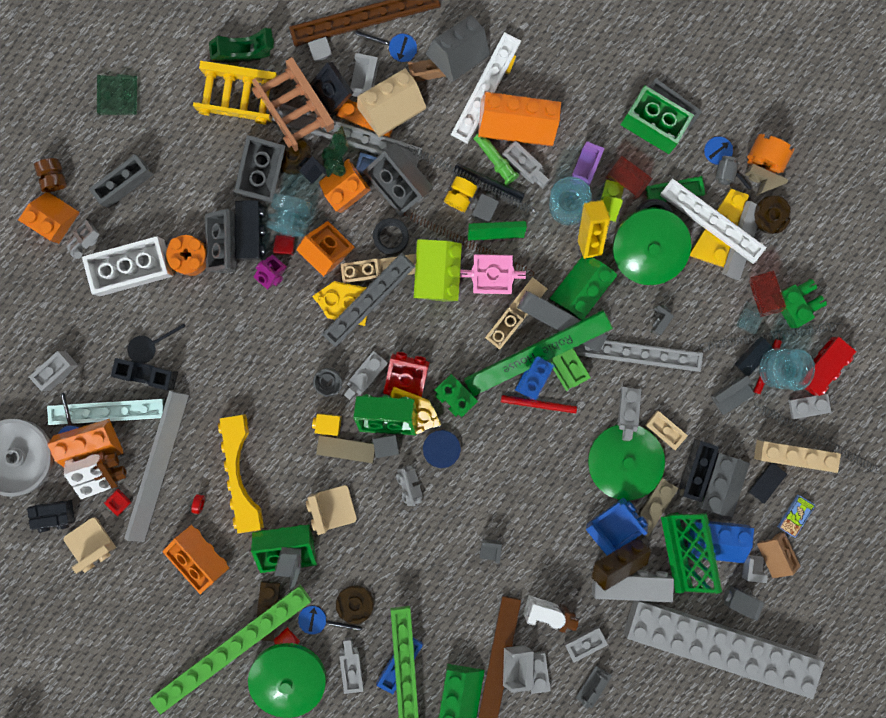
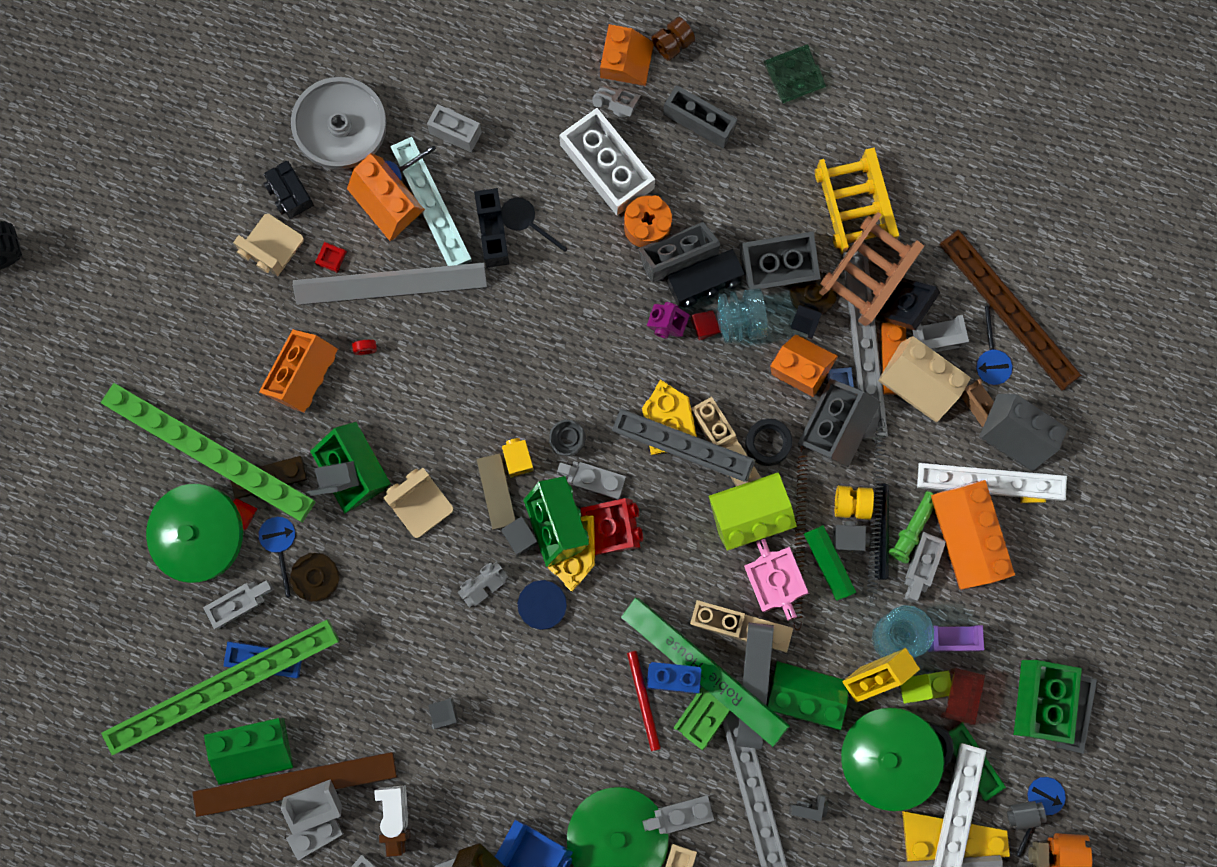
camera: 65 degrees right, 10 degrees down
(94, 473) = (355, 218): white hips -> none
(241, 49) = (908, 188): dark green arch -> none
(247, 513) = (377, 405): yellow arch -> none
(320, 49) = (948, 274): light grey tile -> none
(325, 248) = (722, 371): orange slope -> none
(334, 152) = (833, 337): clear green hinge -> none
(456, 396) = (613, 594): green brick -> none

